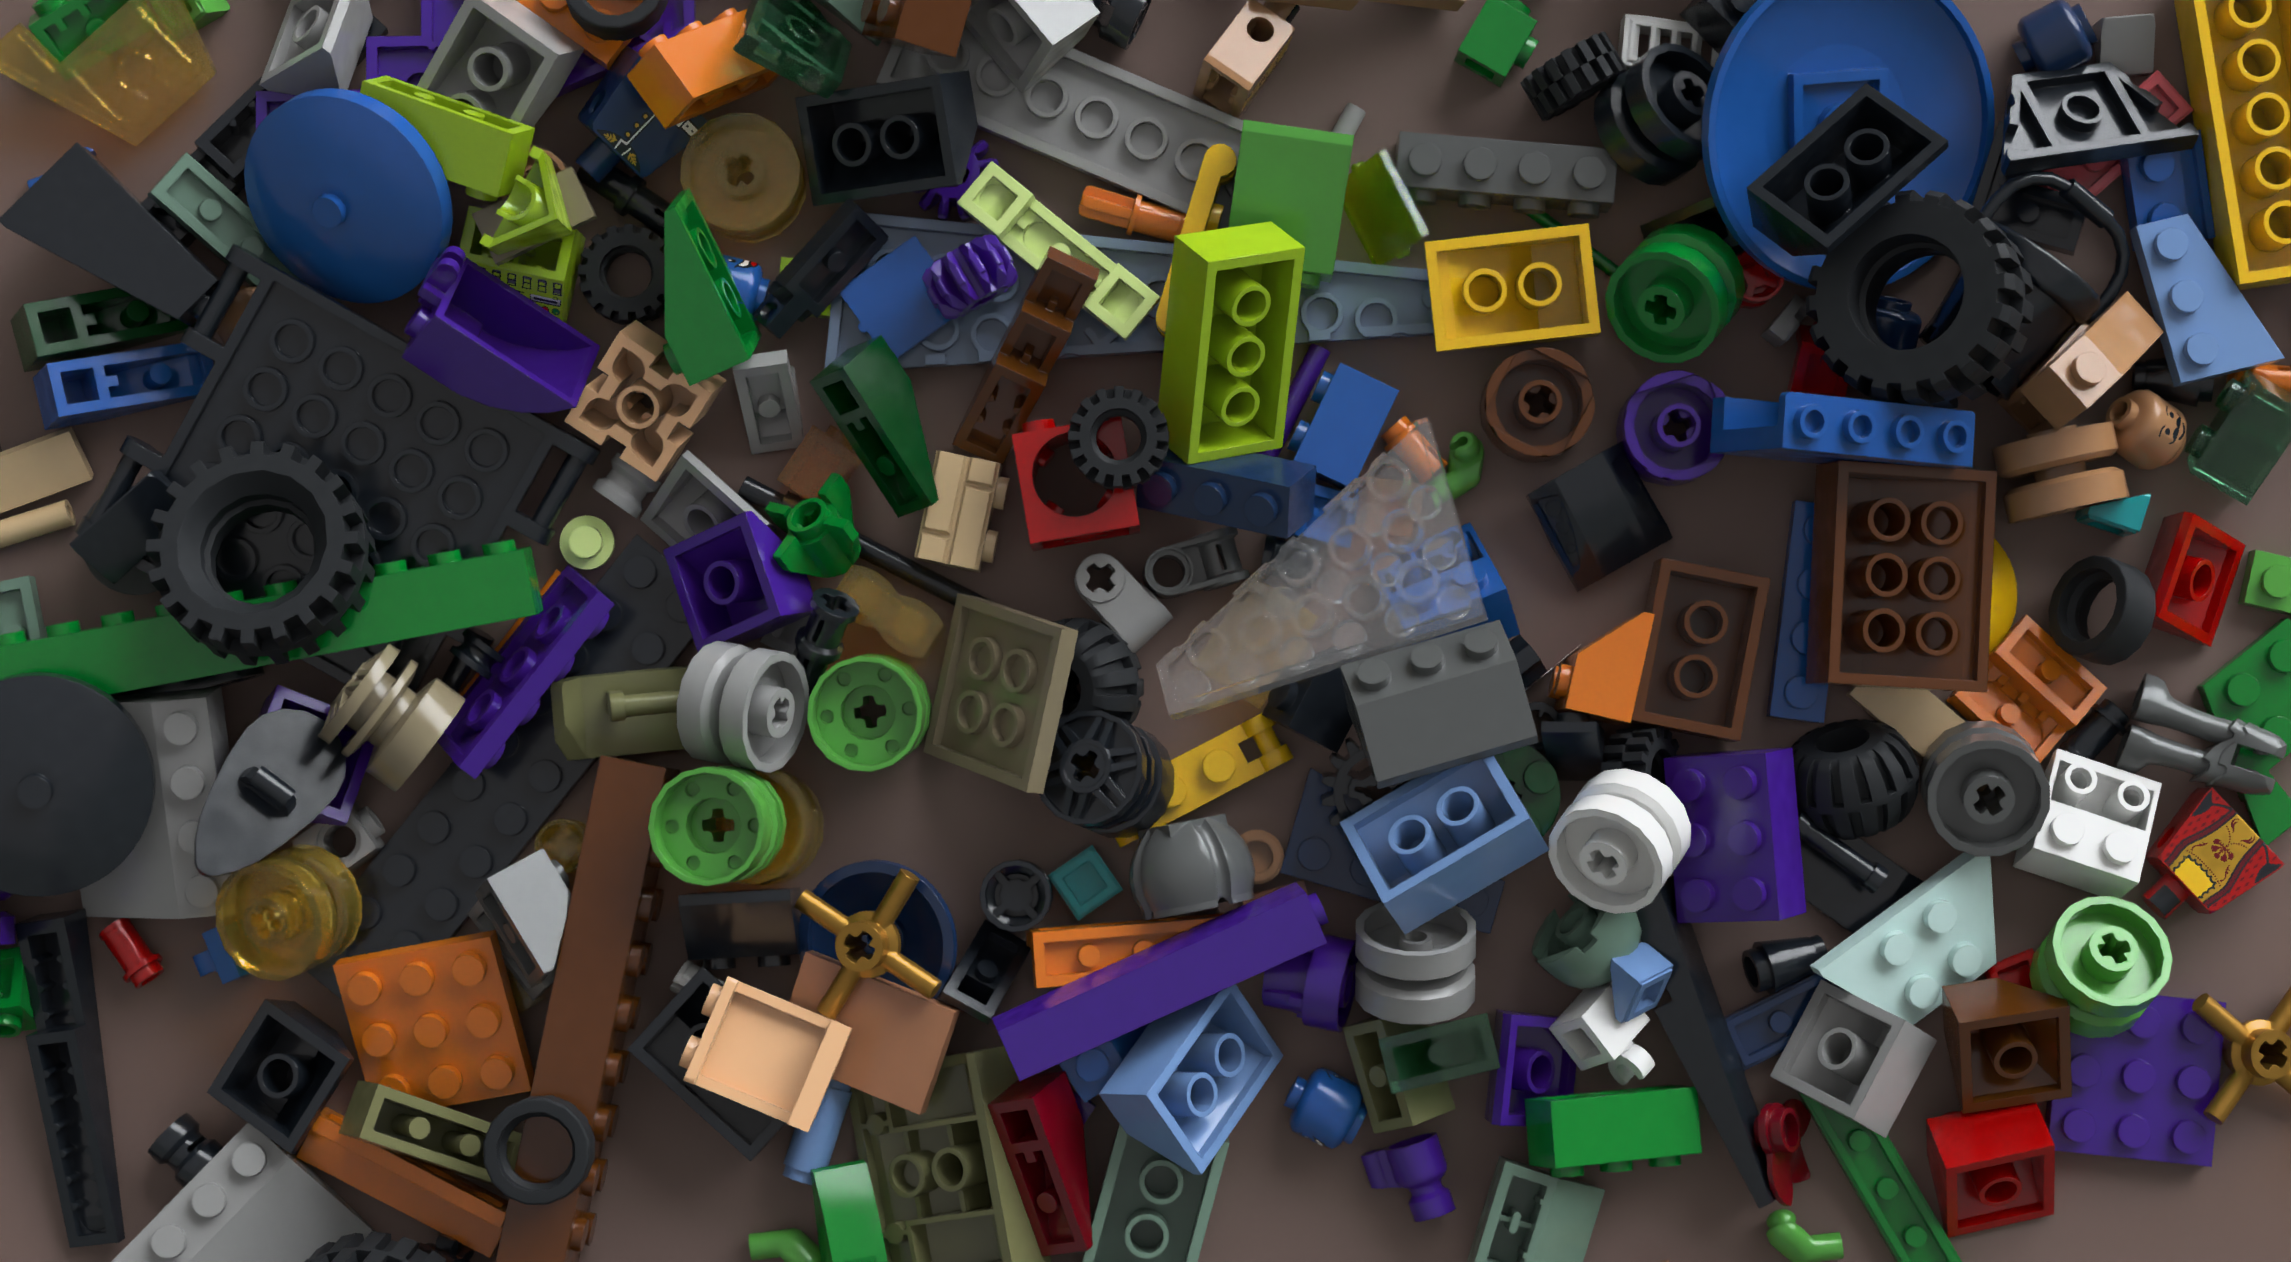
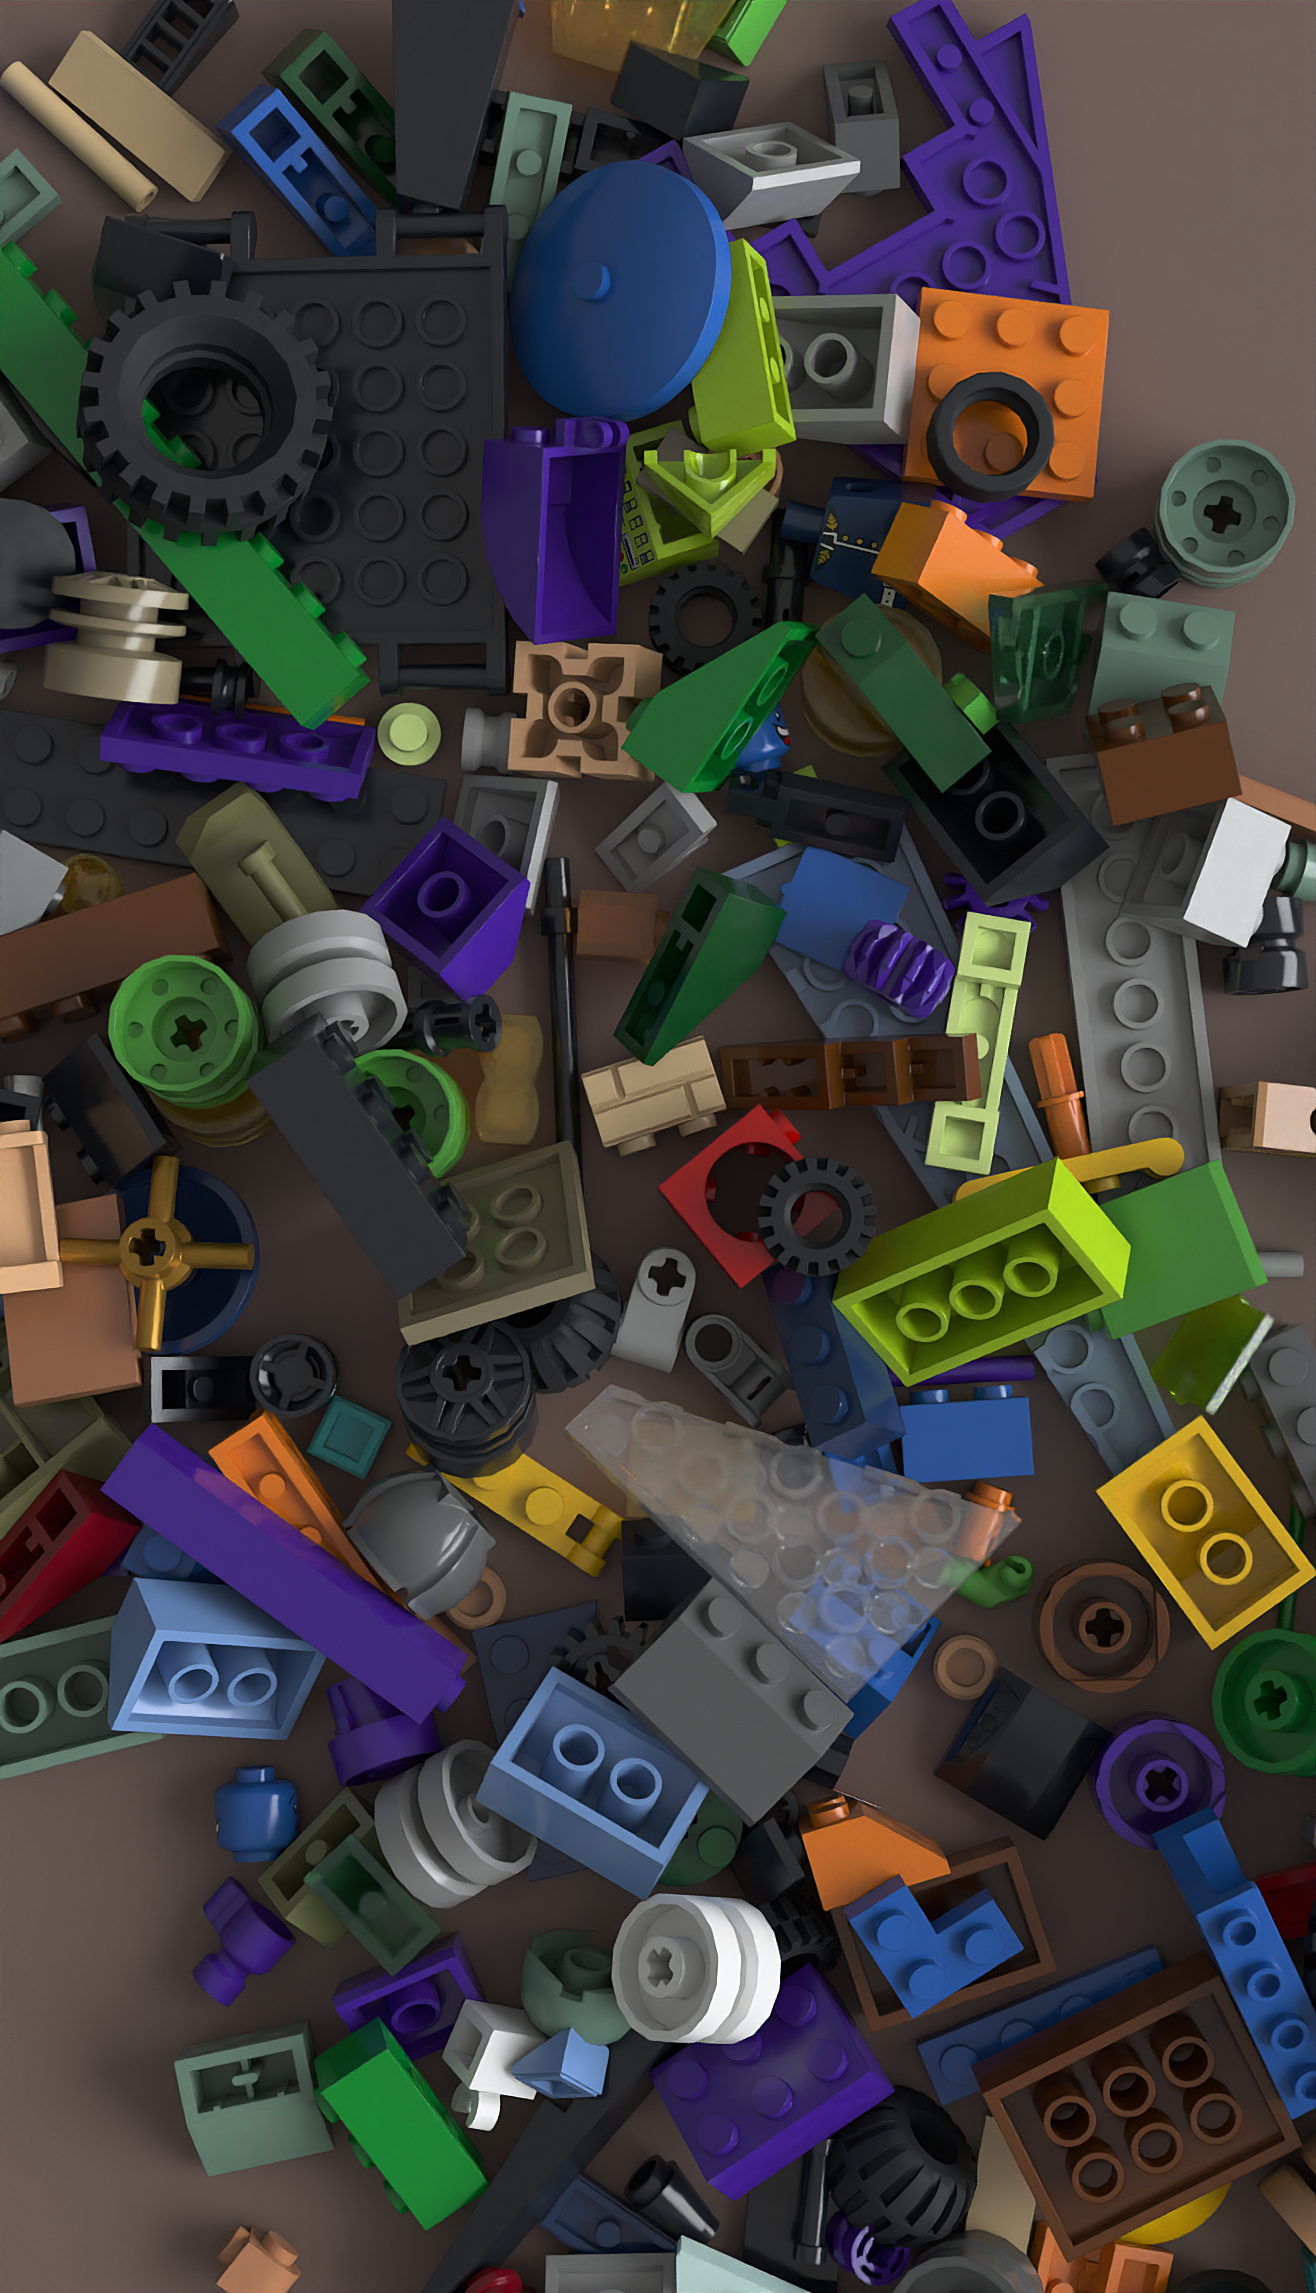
camera: 60 degrees right, 0 degrees up
(221, 70) = (677, 92): none -> black slope
(767, 157) = (901, 693): none -> dark green slope
(803, 111) = (971, 702): none -> bright green tile
(819, 532) = (550, 963): green brick -> none
(881, 746) = (360, 1153): none -> black brick
(1511, 524) = (964, 1666): none -> medium nougat tile
(1707, 667) = (934, 1958): none -> blue plate
(1892, 846) = (855, 2252): none -> dark purple wheel

